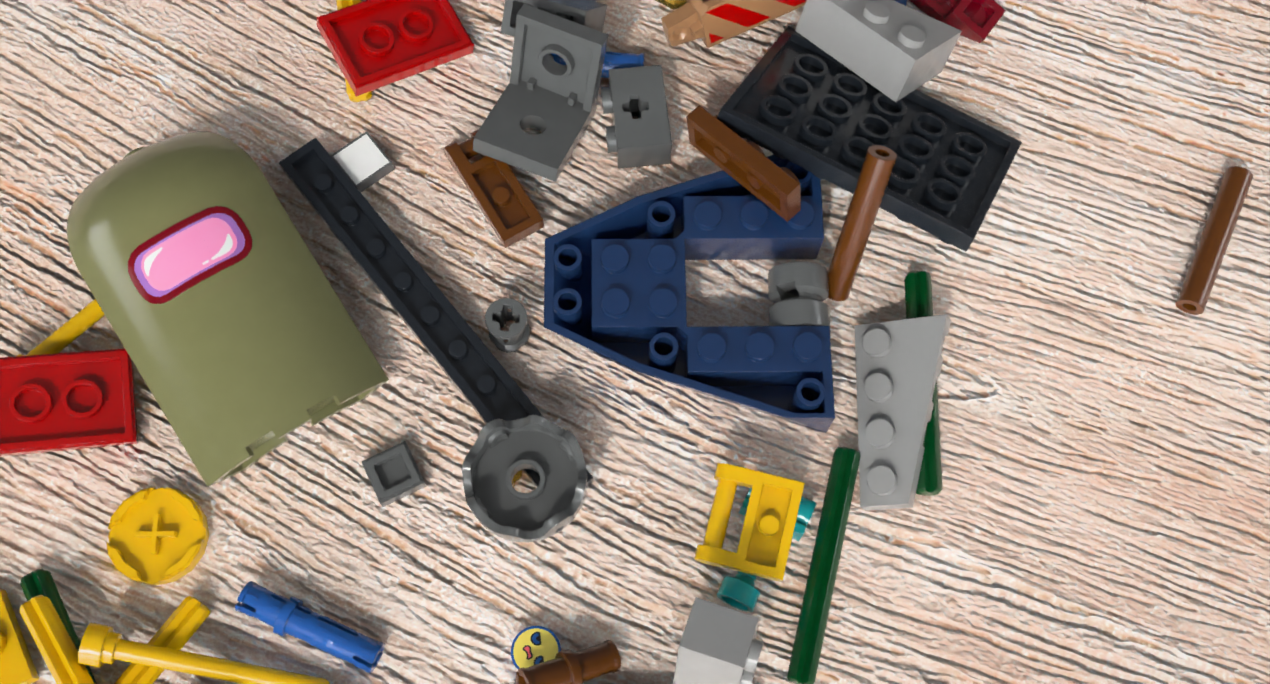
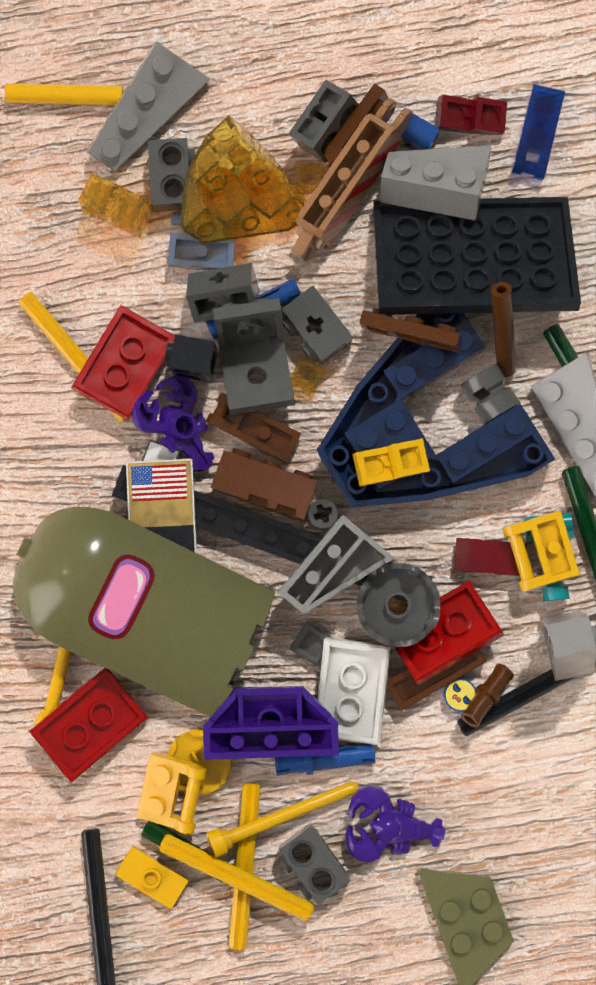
camera: 30 degrees left, 15 degrees up
(84, 540) = (162, 790): none -> yellow plate
(264, 531) = (270, 725): none -> dark purple wedge
(333, 196) = (163, 499): none -> tile
(401, 559) = (355, 687): none -> white tile
(405, 127) = (175, 422): none -> dark purple animal
(461, 250) = (264, 484): none -> reddish brown wedge
(471, 63) = (191, 358): none -> black brick
(471, 379) = (333, 565): none -> light grey wedge
(521, 600) = (407, 692): none -> reddish brown plate
(582, 563) = (461, 631): none -> red tile
(592, 154) = (315, 373): none -> clear yellow plate
(624, 299) = (391, 462): none -> yellow slope
(675, 495) = (485, 557): none -> dark red slope
(1025, 57) = (538, 131): none -> clear blue plate

